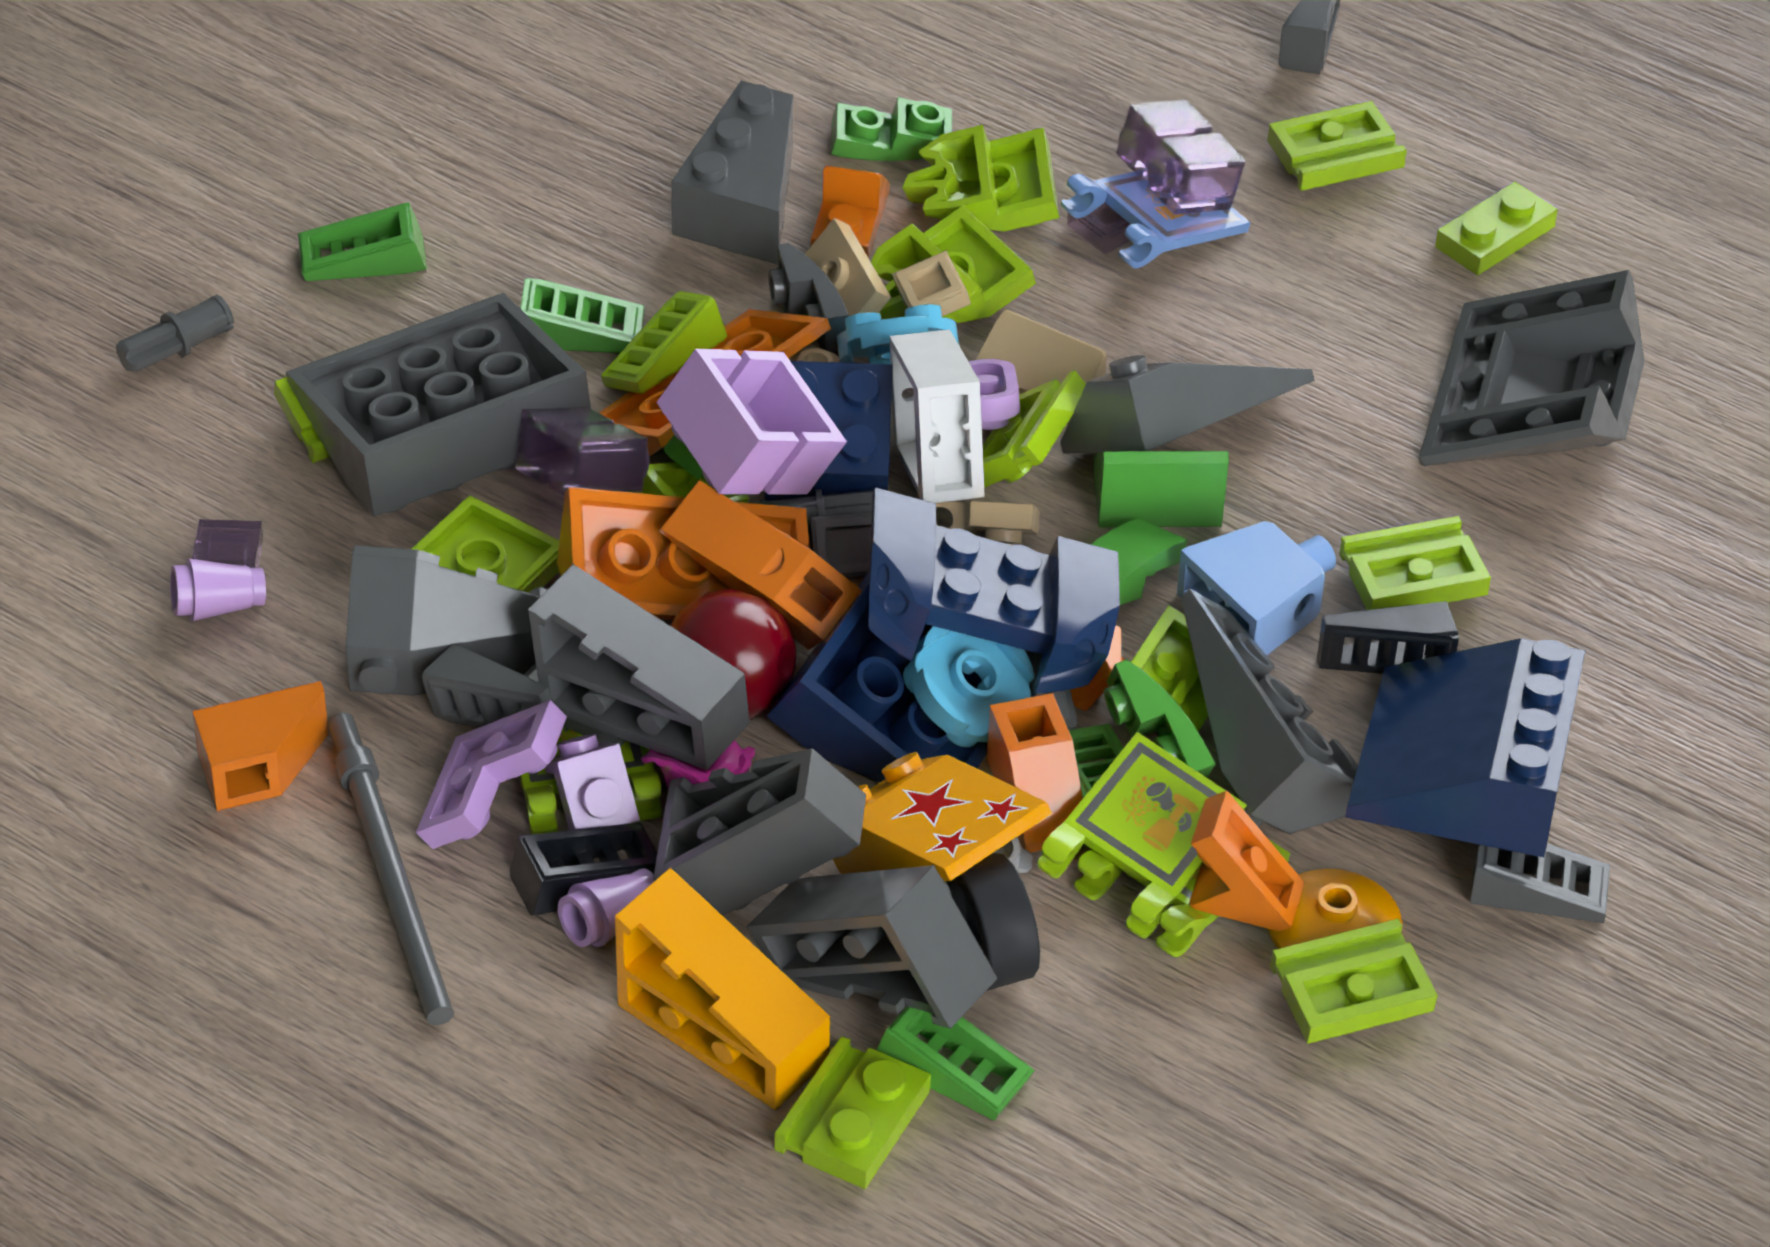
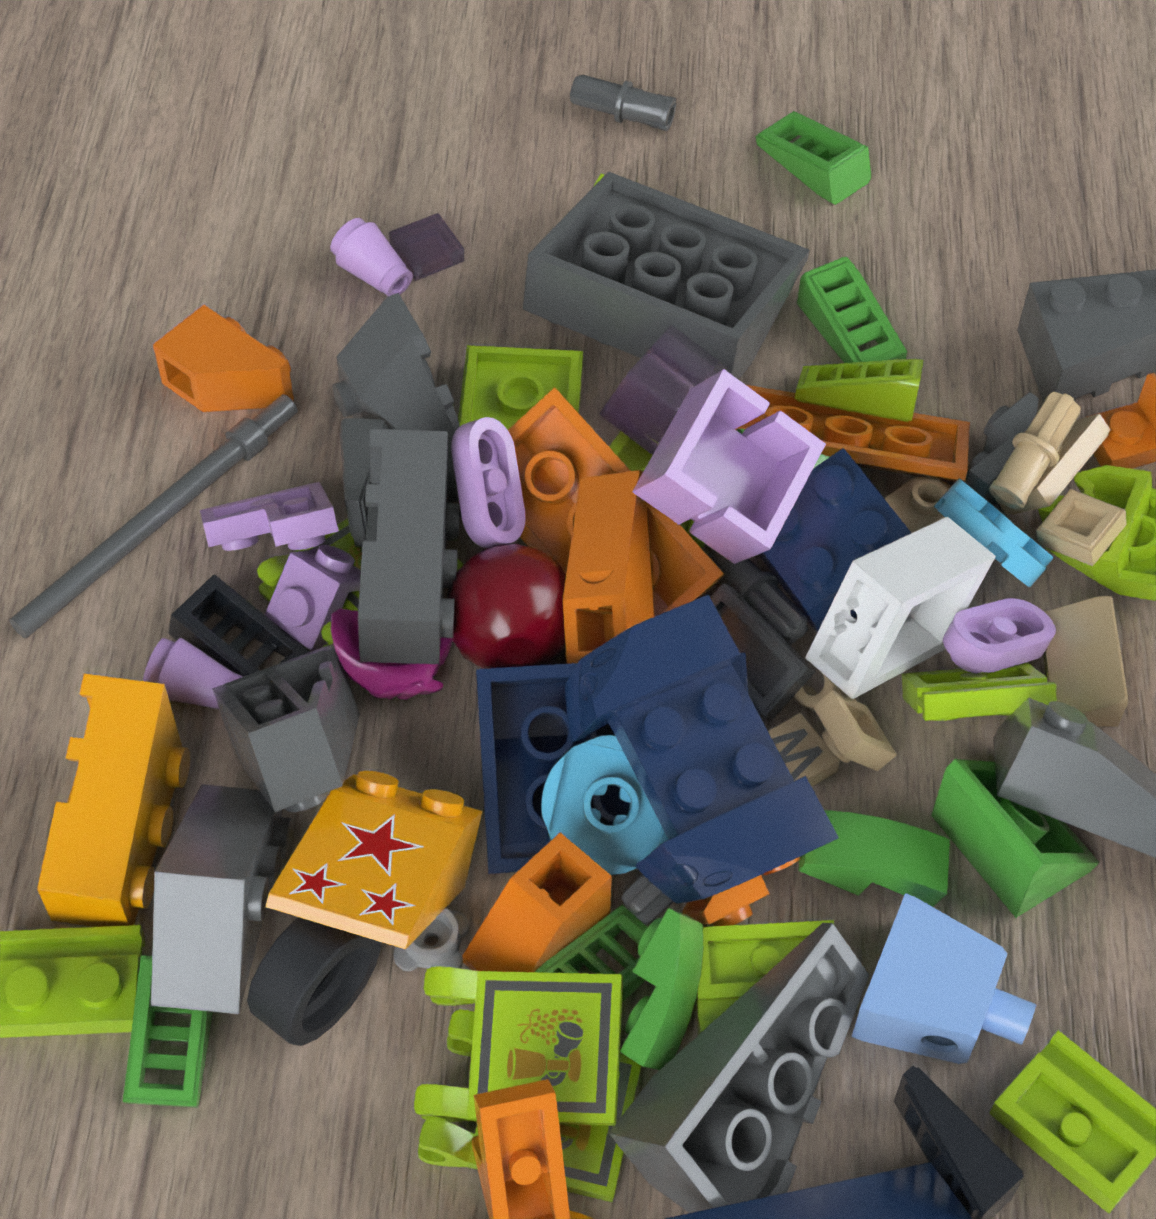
camera: 60 degrees right, 10 degrees up
(616, 577) = (488, 482): none -> lavender plate
(846, 265) = (1035, 450): none -> tan axle

